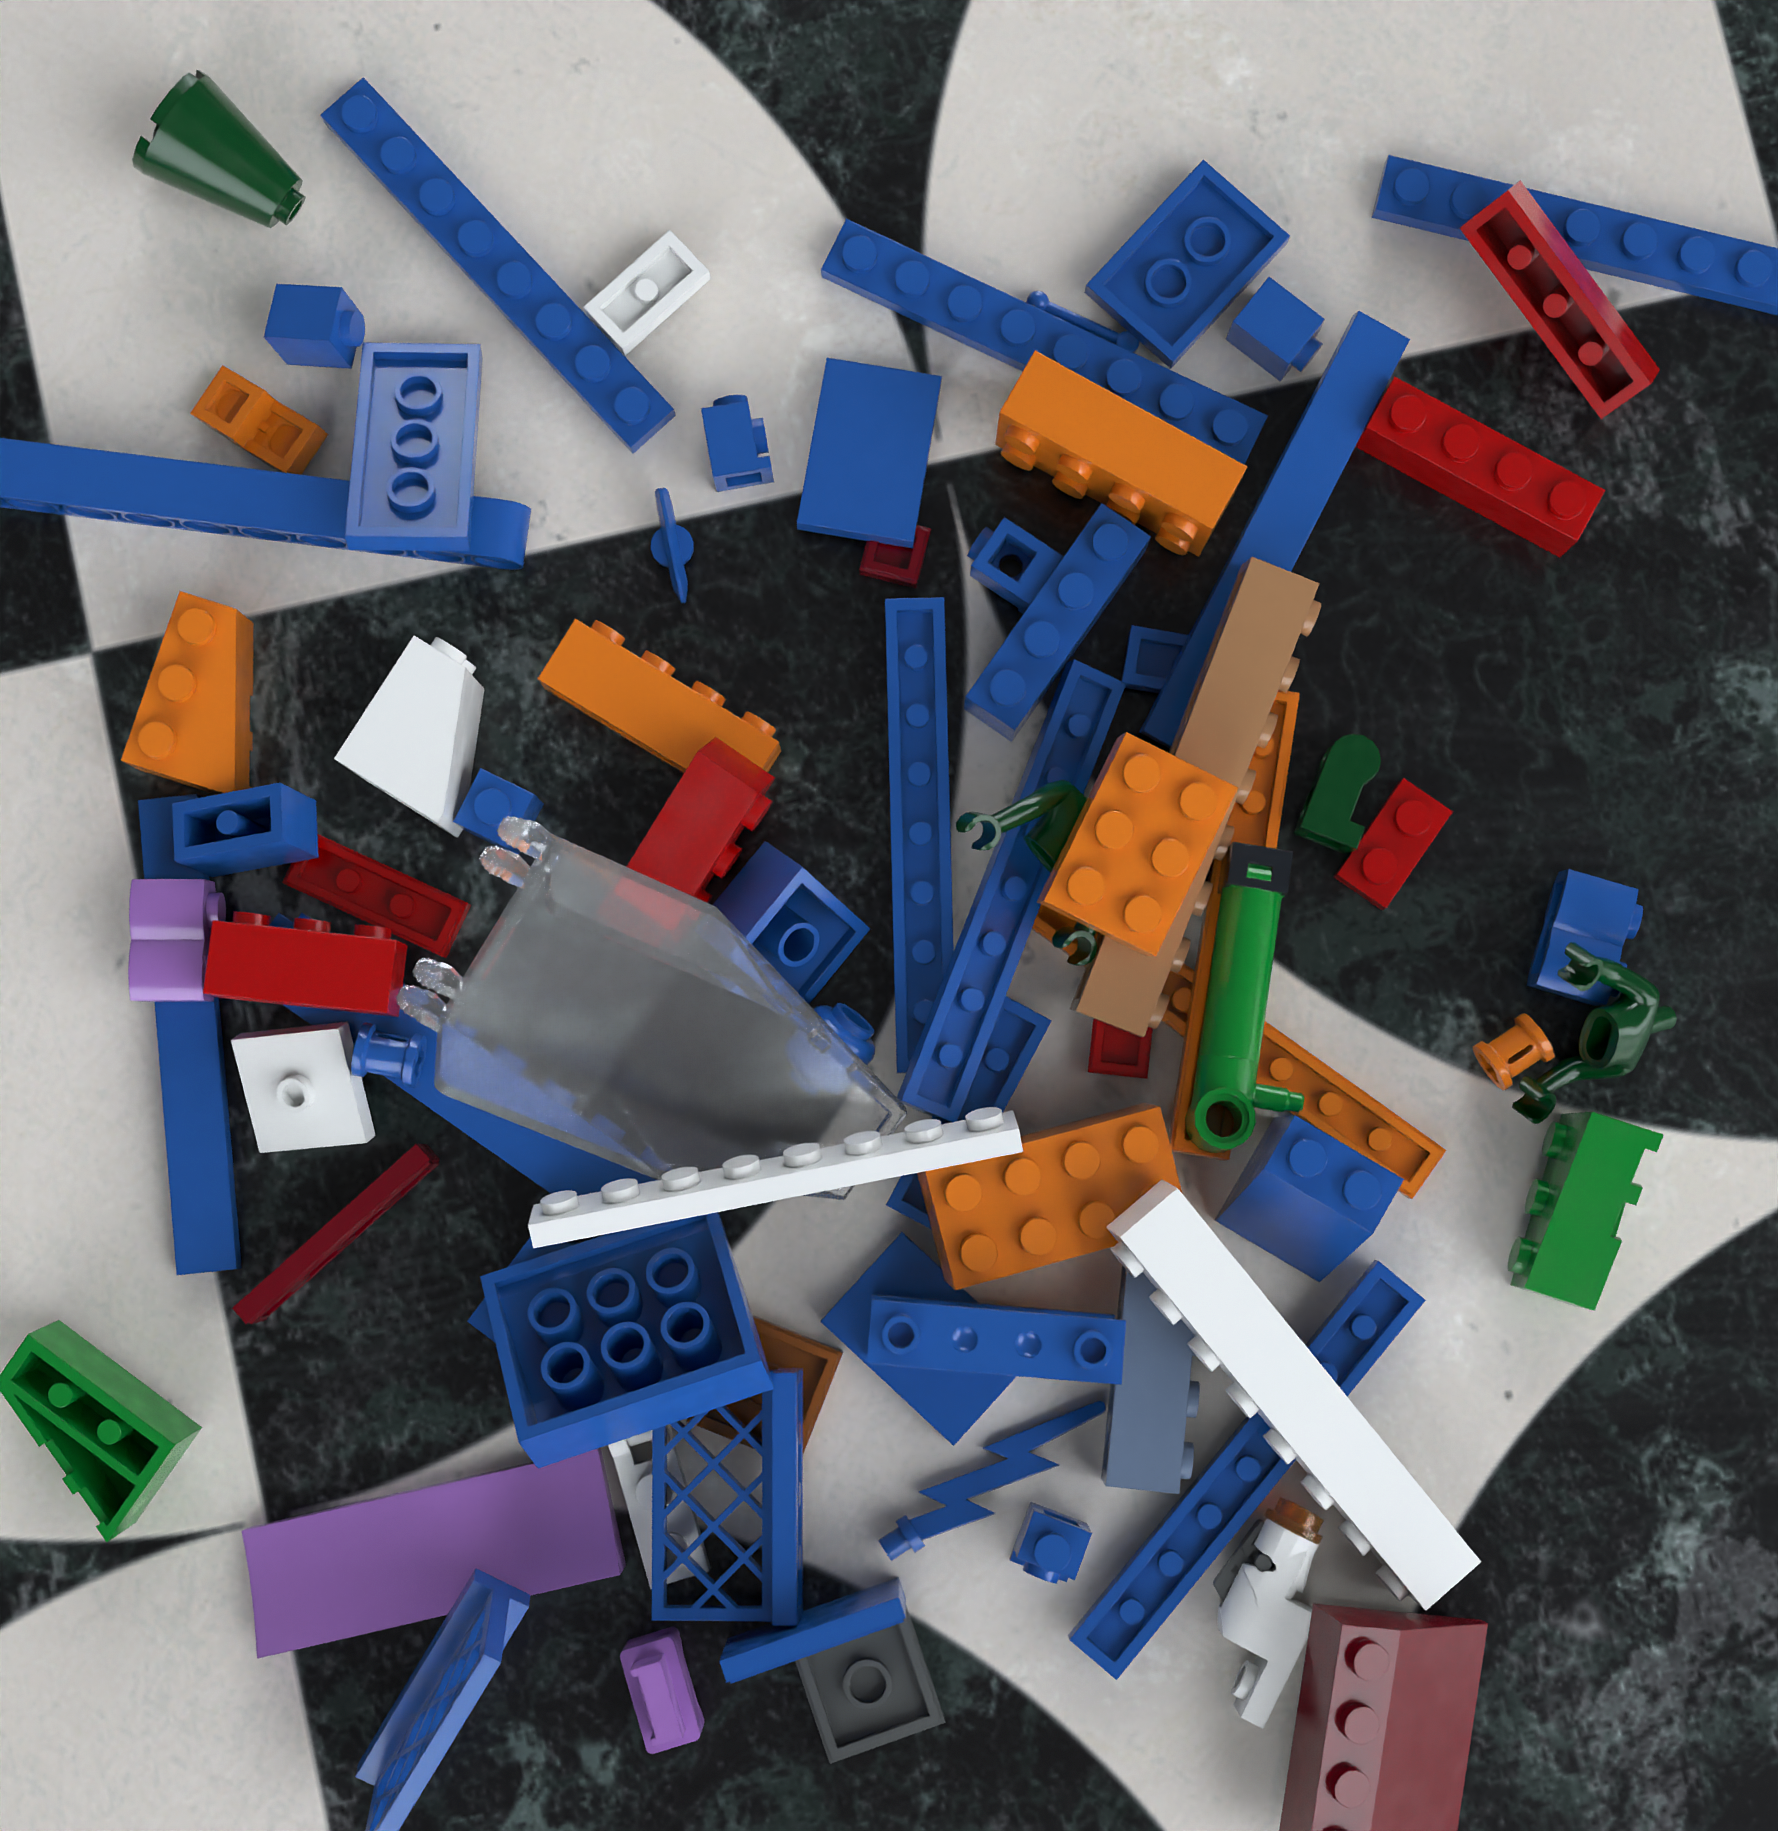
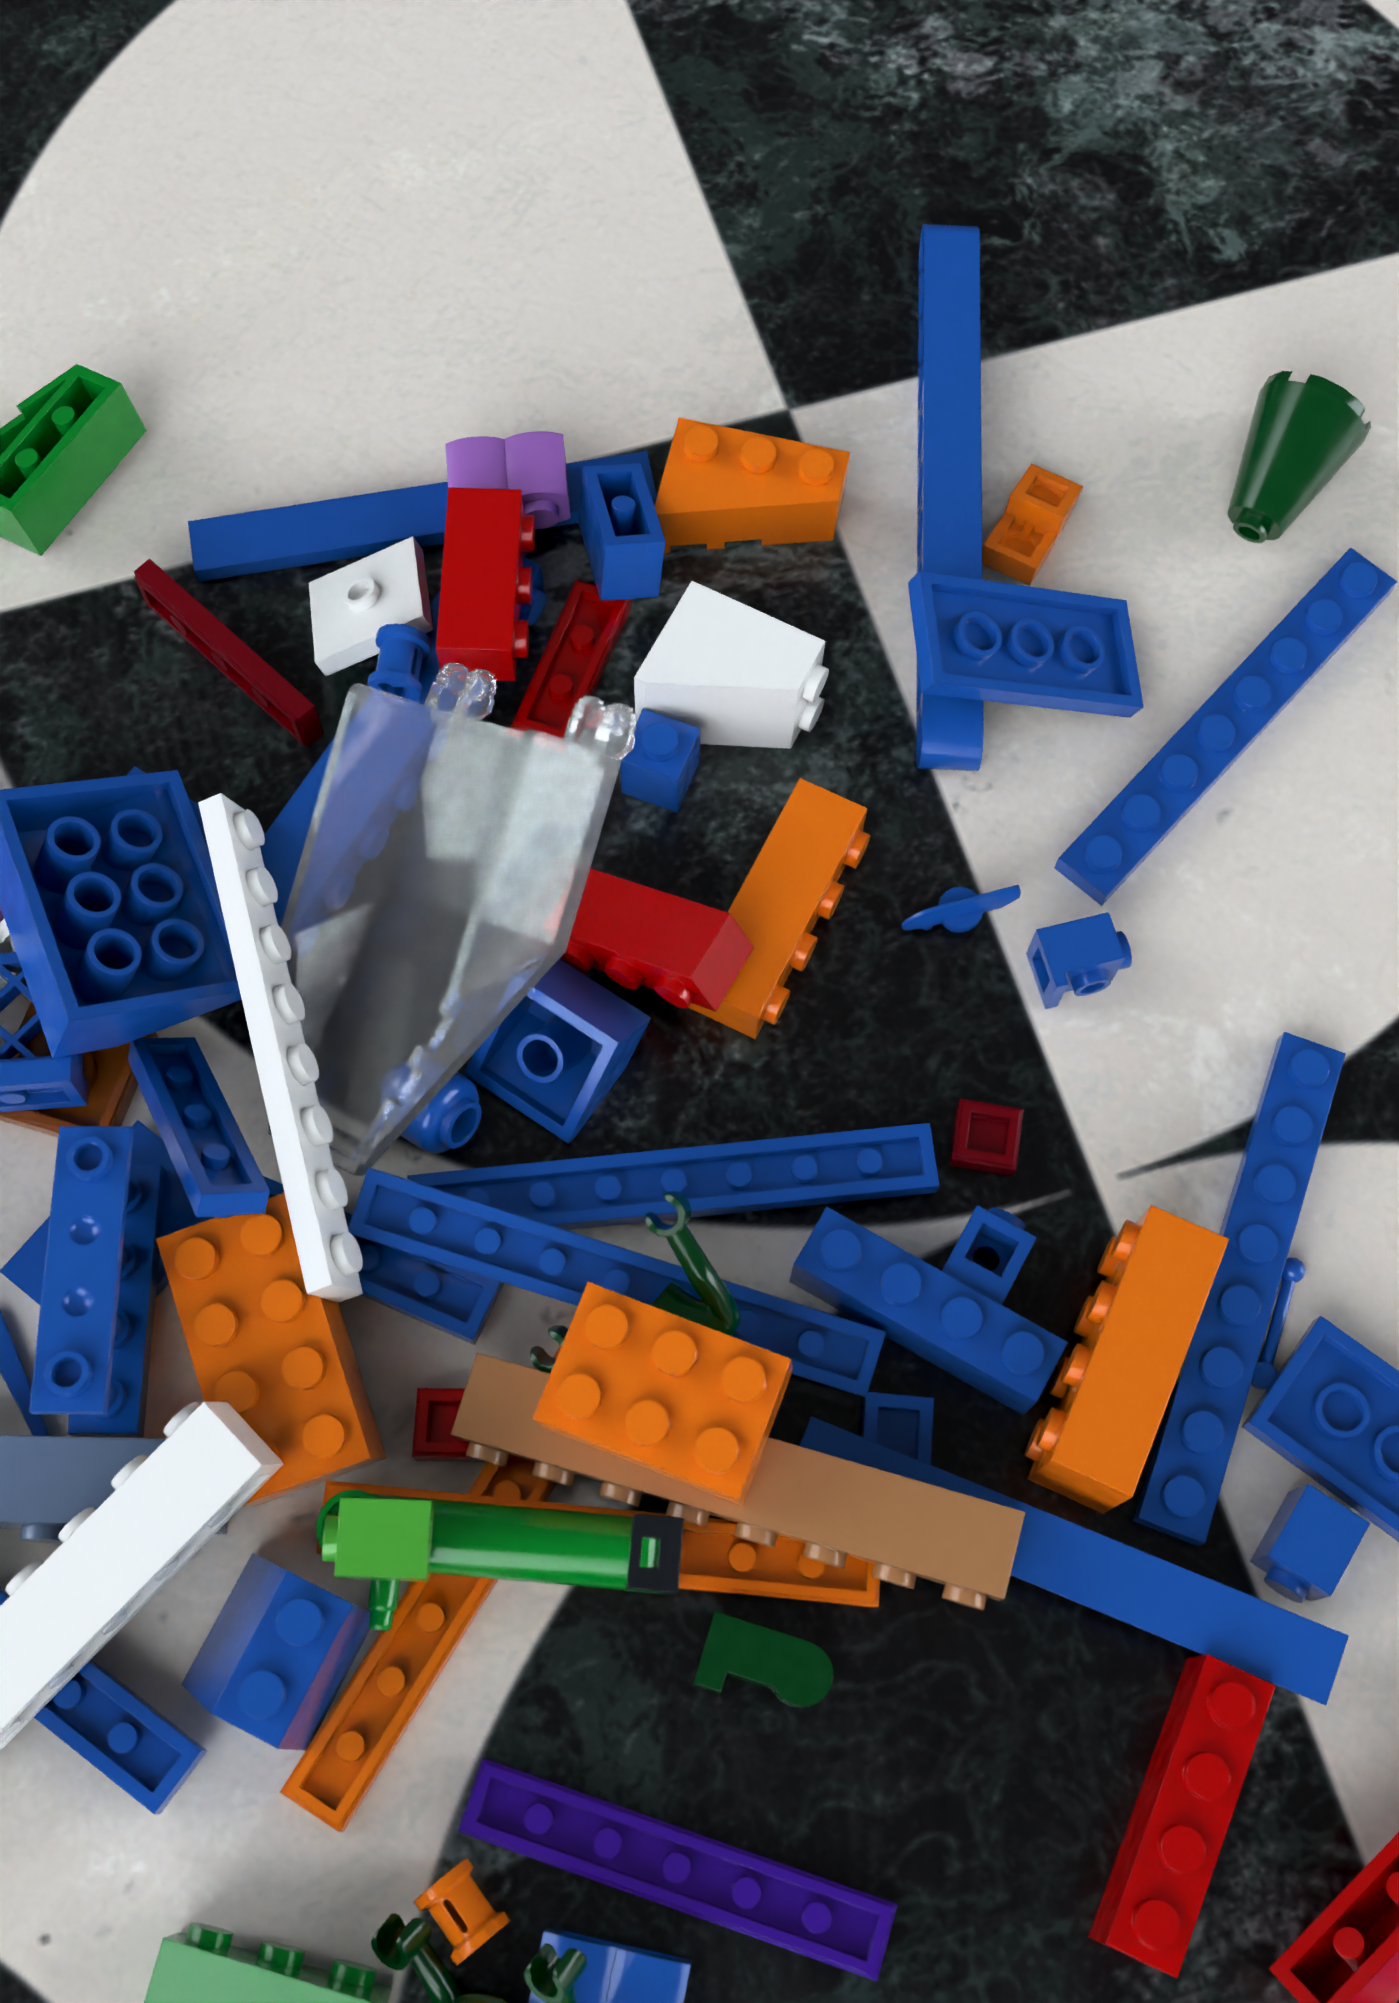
camera: 80 degrees right, 15 degrees down
(314, 326) = (1134, 553): blue brick -> none
(647, 292) = (1226, 861): white plate -> none
(848, 1255) = (198, 1128): none -> blue plate
(869, 452) = (1091, 1099): blue tile -> none
(1244, 1089) = (380, 1539): none -> bright green brick
(1393, 844) = (709, 1739): red plate -> none
(1489, 879) = (679, 1868): none -> dark purple tile

